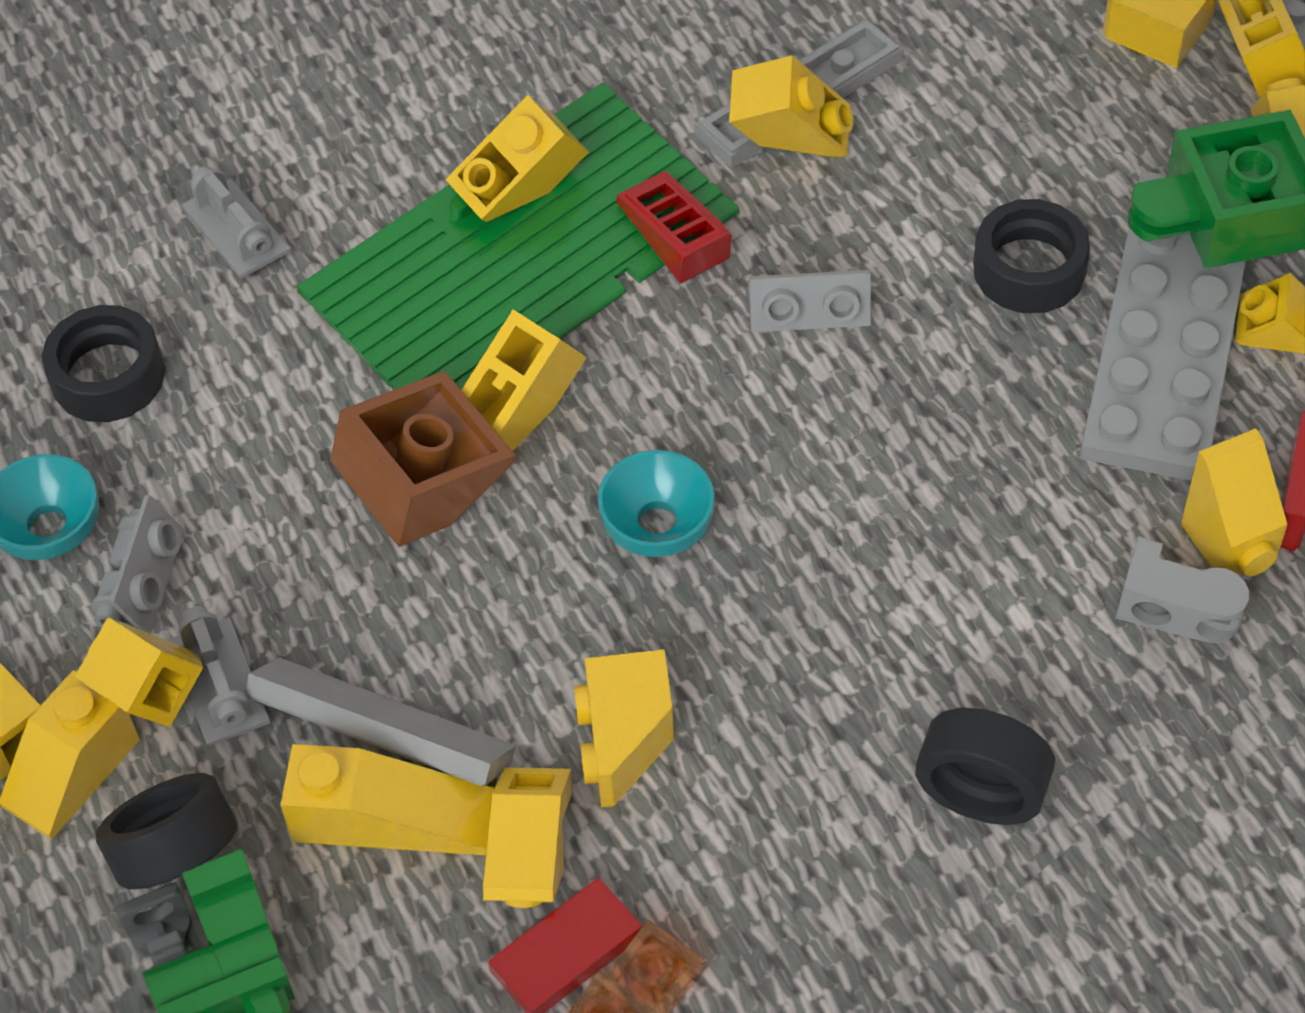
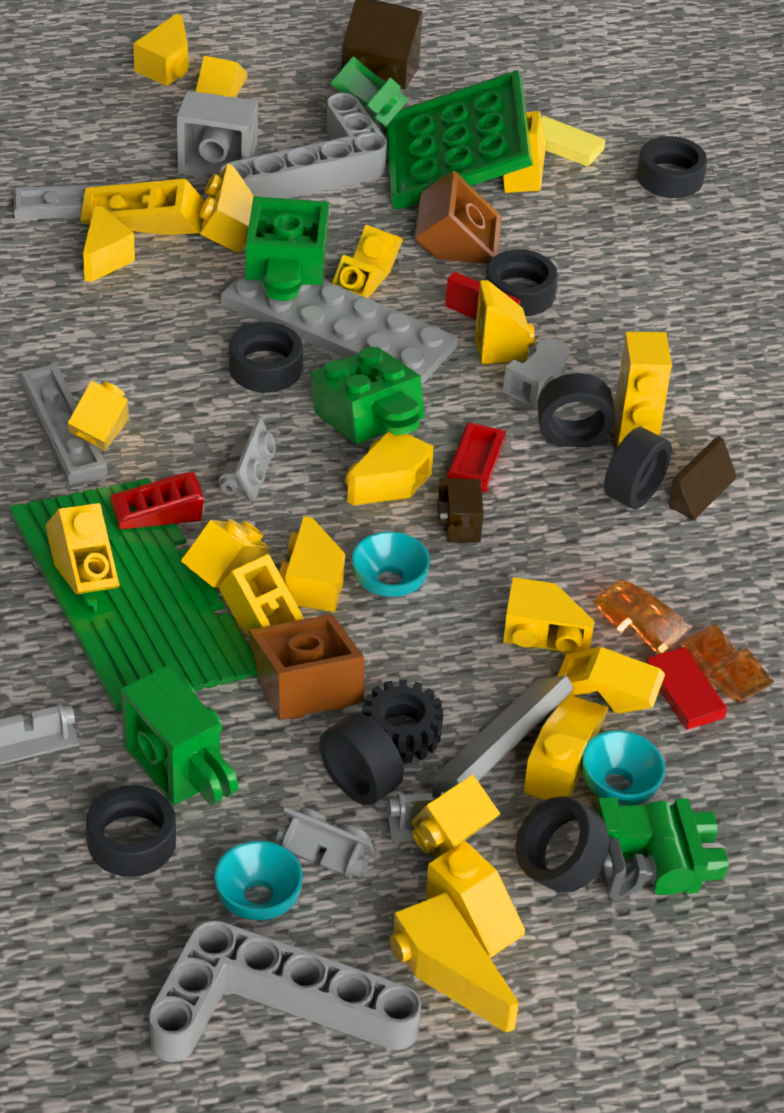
camera: 80 degrees left, 10 degrees down
(227, 350) = (175, 738): none -> green brick
(255, 555) = (361, 759): none -> black tyre
(336, 853) = (623, 755): none -> teal piece
(363, 566) = (411, 703): none -> black tyre
(606, 316) = (224, 548): none -> yellow slope
(623, 417) = (315, 567): none -> yellow slope
(684, 850) = (635, 607): none -> clear orange slope
(809, 566) = (460, 509): none -> dark brown brick
(858, 456) = (390, 470): none -> yellow slope
(956, 563) = (477, 454): none -> red tile
(976, 396) = (368, 395): none -> green brick
(1036, 880) = (702, 480): none -> dark brown slope
(1082, 653) = (576, 388): none -> black tyre
(1128, 717) = (642, 383): none -> yellow brick

